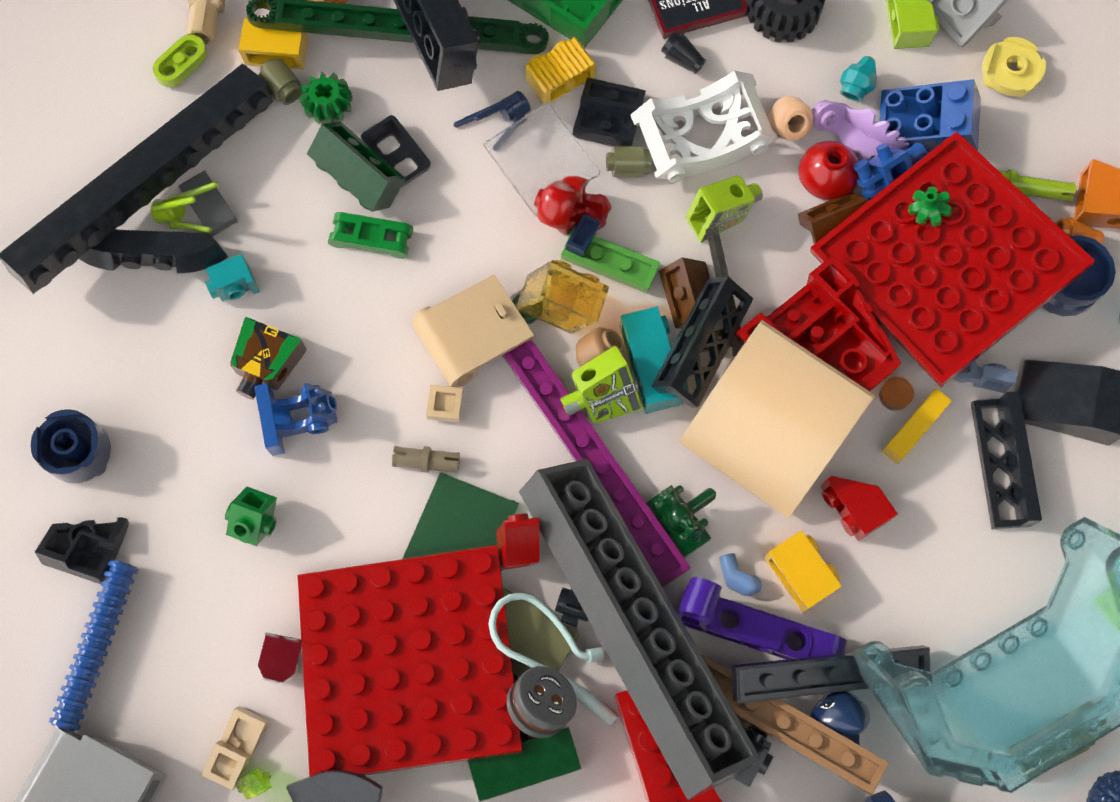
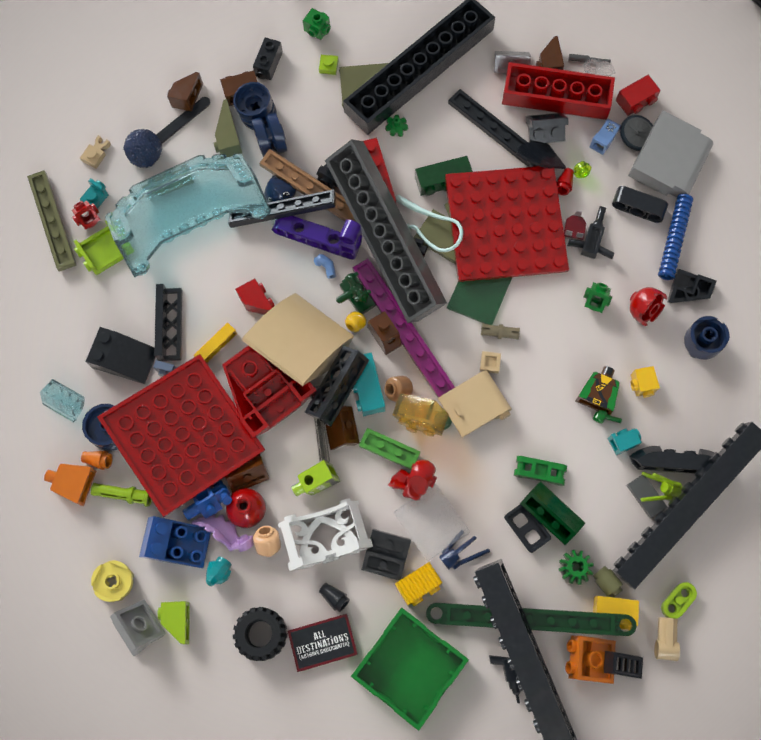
camera: 175 degrees left, 0 degrees up
(152, 710) = (640, 204): none -> black beam
(167, 506) = (647, 304): none -> red cylinder
(187, 374) = (644, 382): none -> yellow brick
(235, 748) = (593, 188): tan slope -> none
(245, 640) = (591, 245): none -> black piece
(267, 317) = (601, 415): none -> green hand
(277, 418) = (588, 355): blue tile -> none
(289, 757) = (565, 182): none -> red cone
(519, 542) = (447, 280): red slope -> none
(541, 702) = (435, 195): dark grey head -> none
(583, 235) = (406, 462): dark blue piece -> none
(603, 388) = (397, 362): lime torso -> none
(628, 161) = (375, 515): olive brick -> none
(630, 447) = (383, 331): none -> reddish brown torso
(678, 468) = (355, 321): none -> yellow piece
(803, 570) = (290, 264): yellow brick -> none
(896, 393) = (218, 363): clear orange tile -> none
(930, 206) = (187, 469): green plant -> none

